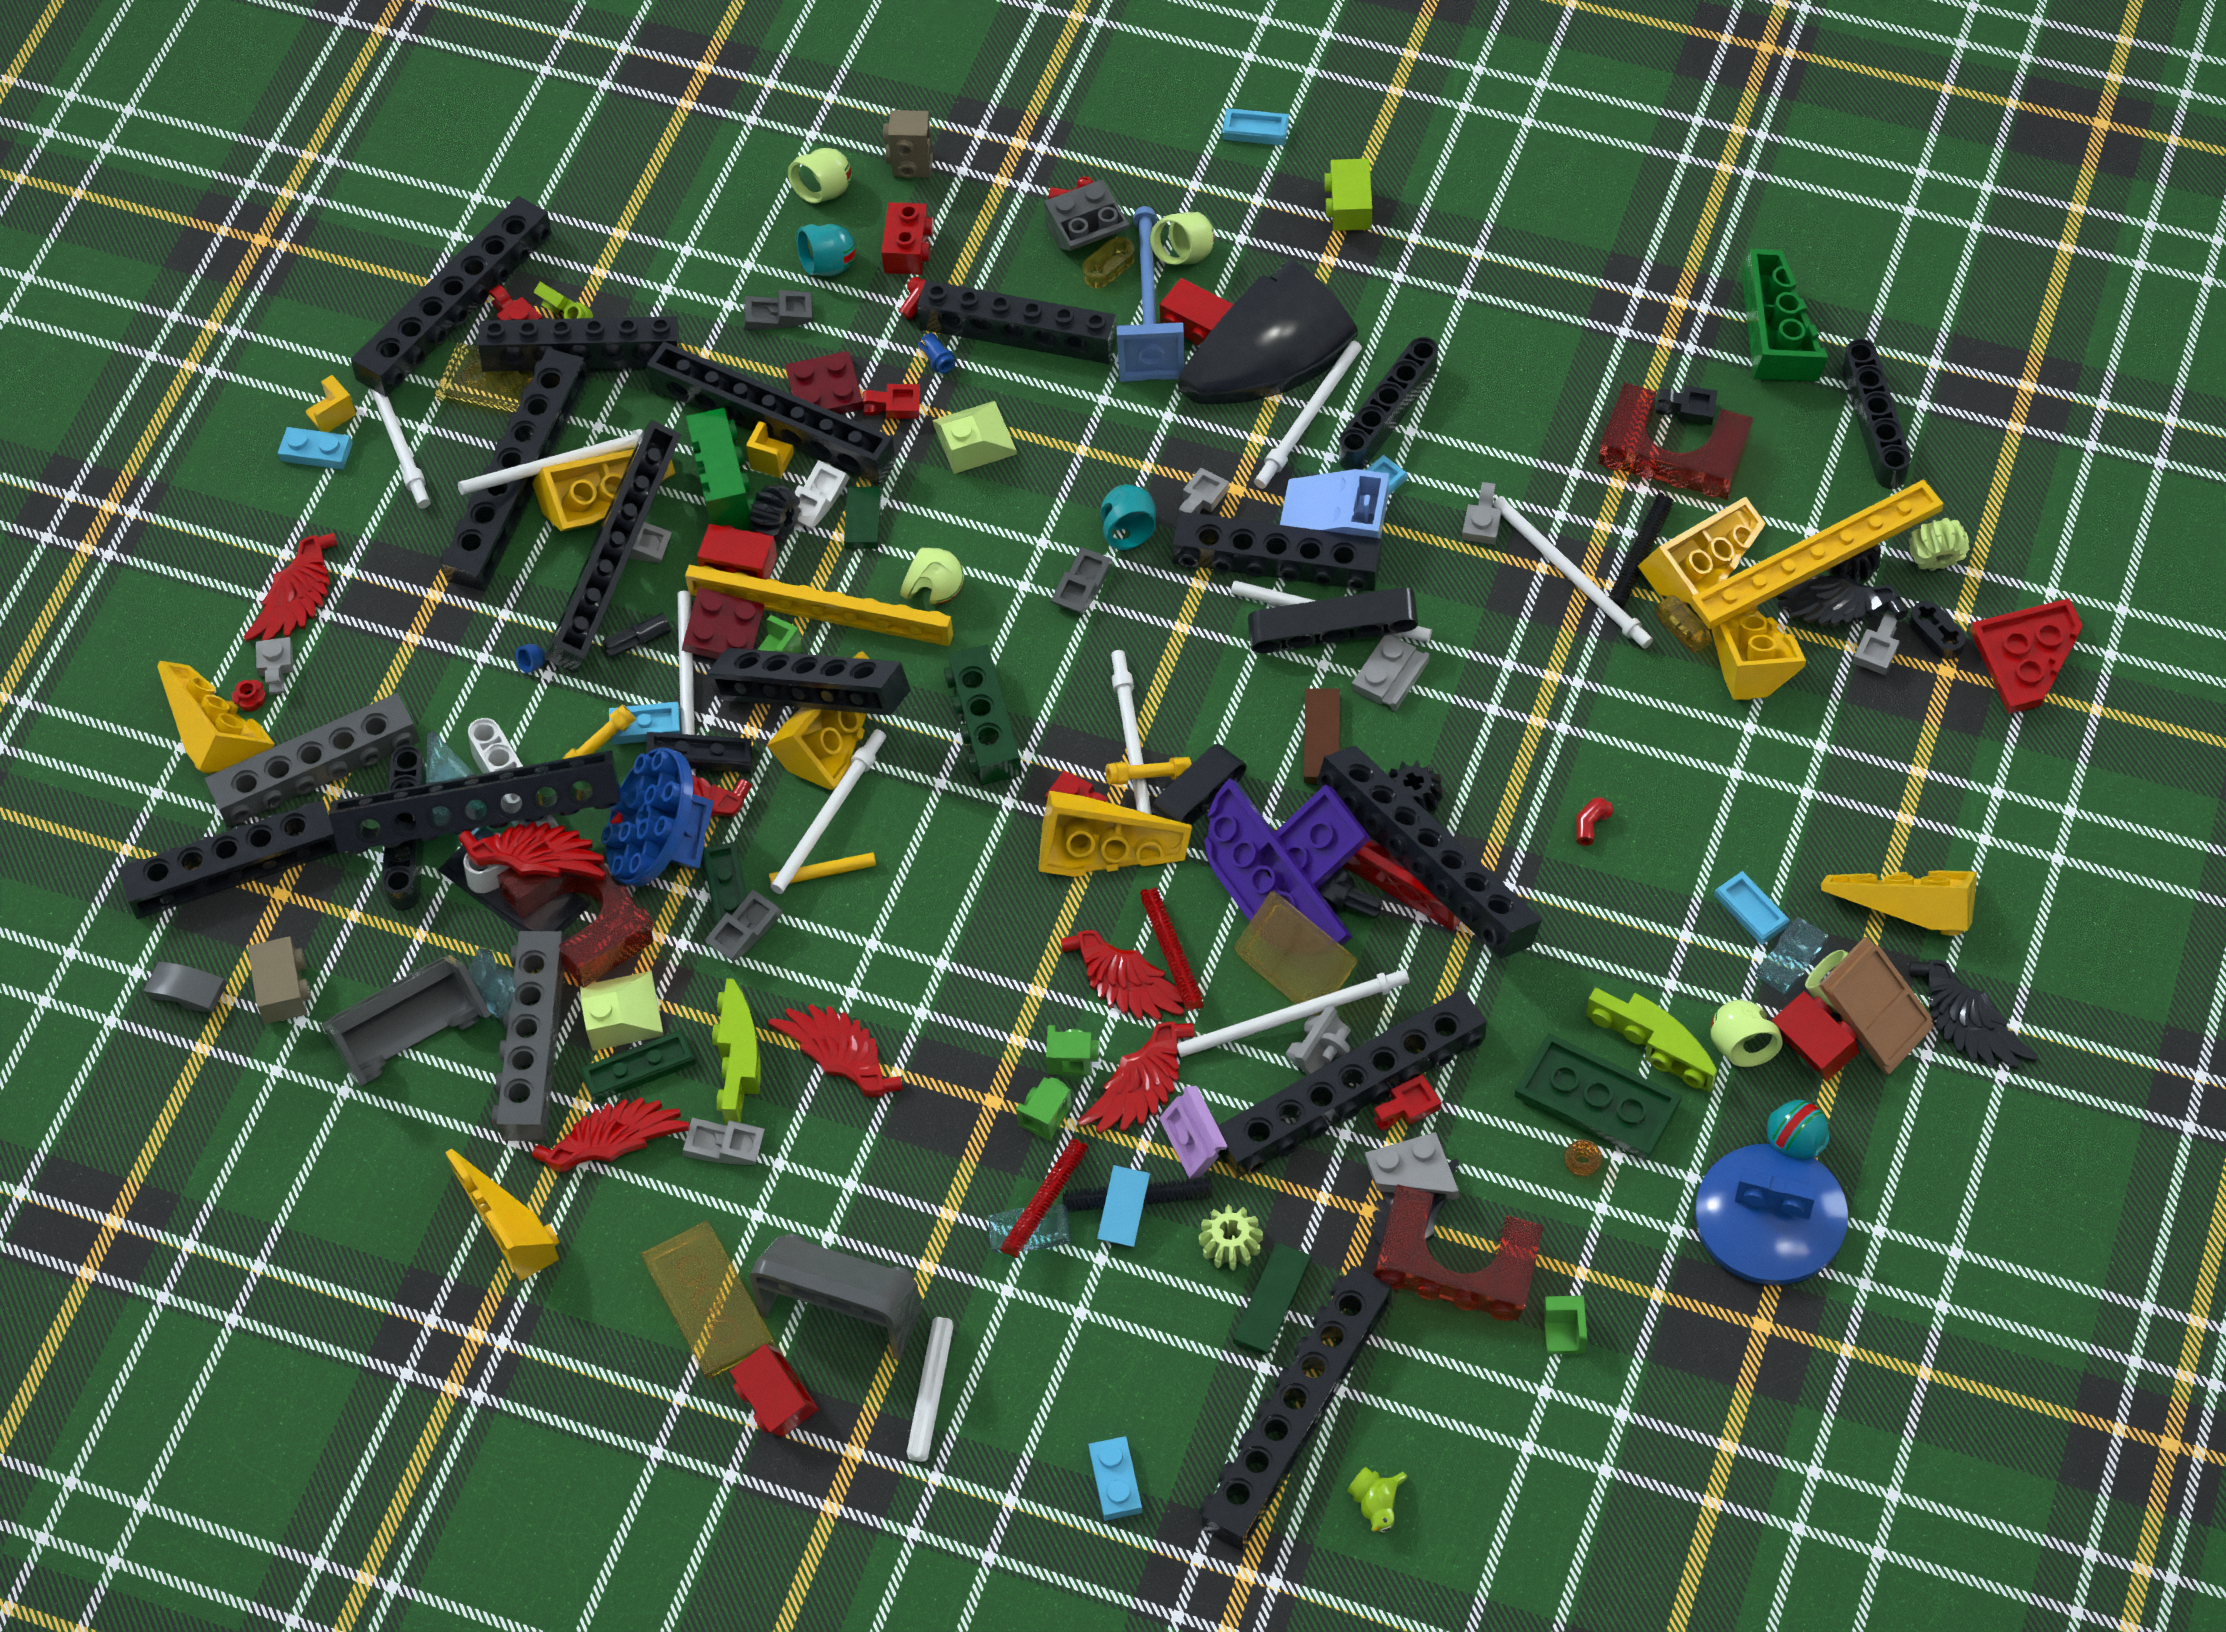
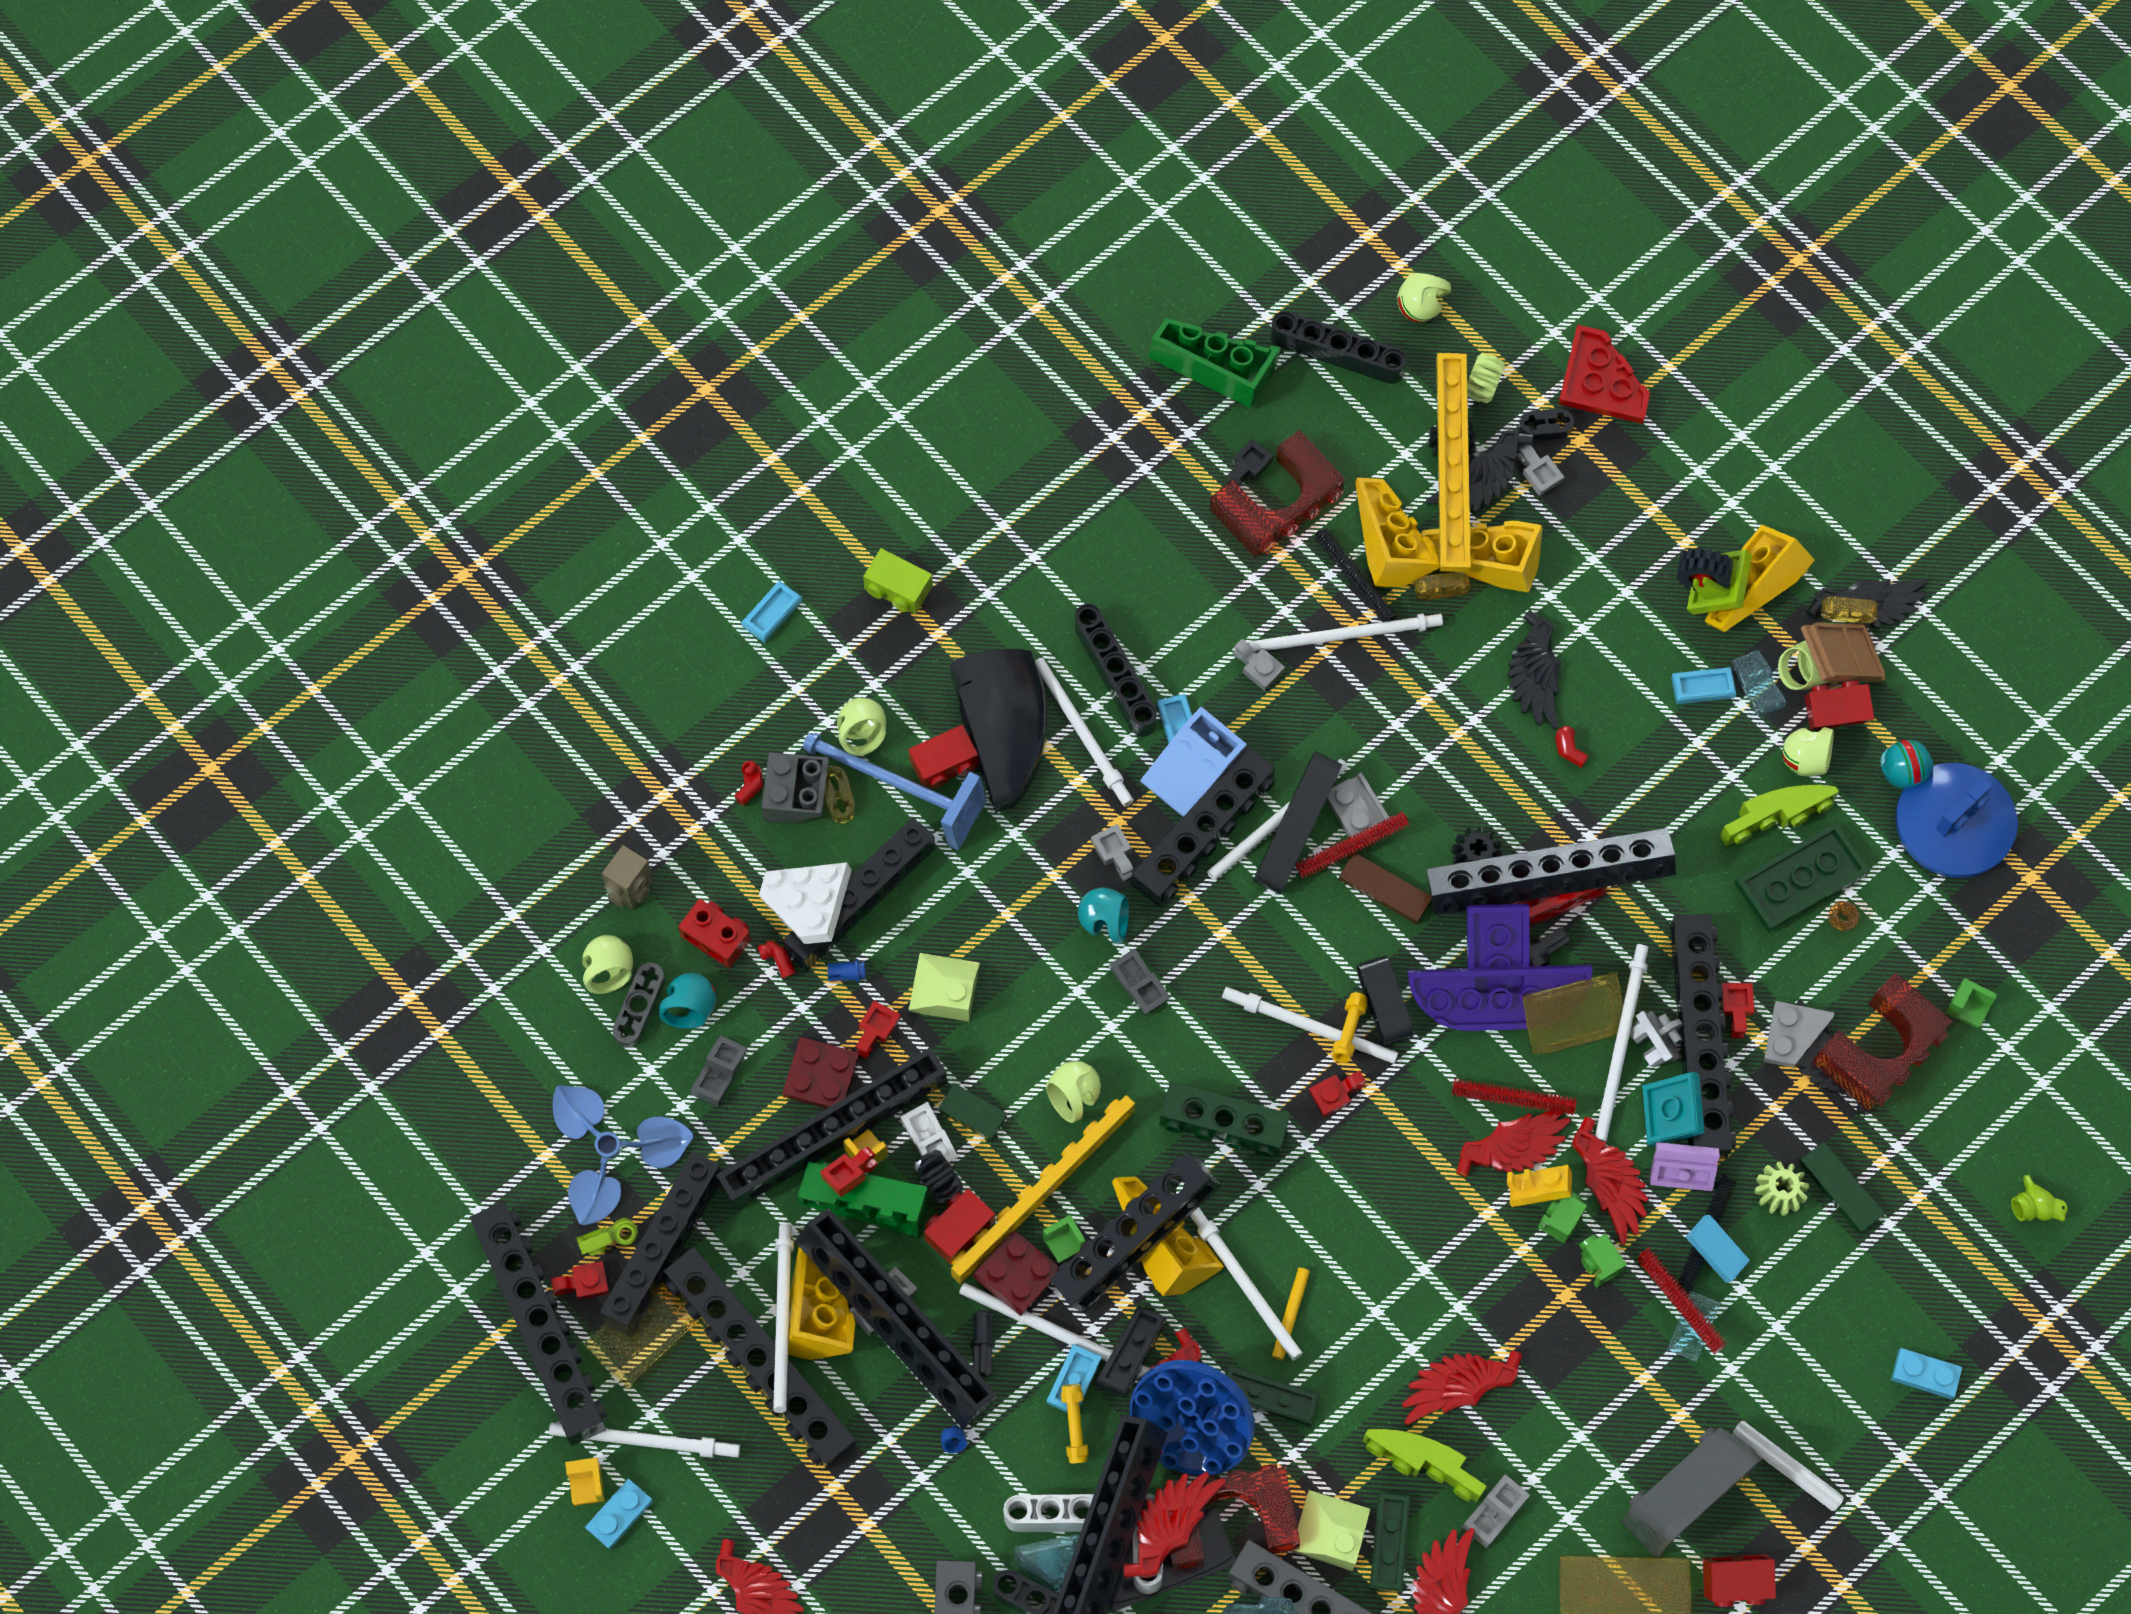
camera: 65 degrees left, 10 degrees up
(675, 231) = (595, 1195): none -> medium blue plant
(724, 428) = (848, 1173): none -> red plate
(745, 927) = (1317, 1398): dark grey slope -> none
(779, 217) = (638, 982): none -> dark grey beam
(977, 275) = (807, 899): none -> white plate
(1085, 1009) = (1539, 1185): none -> yellow plate
(1098, 835) = (1381, 1097): yellow wedge -> none
(1239, 1522) = (1940, 1200): black brick -> none
(1248, 1090) = (1673, 1109): none -> teal plate
(1344, 681) = (1352, 844): none -> red axle
(1654, 752) = (1536, 671): none -> black animal
(1870, 842) = (1715, 578): none -> plate
(1935, 991) = (1849, 609): none -> clear yellow beam
(1985, 446) = (1418, 297): none -> yellowish green helmet

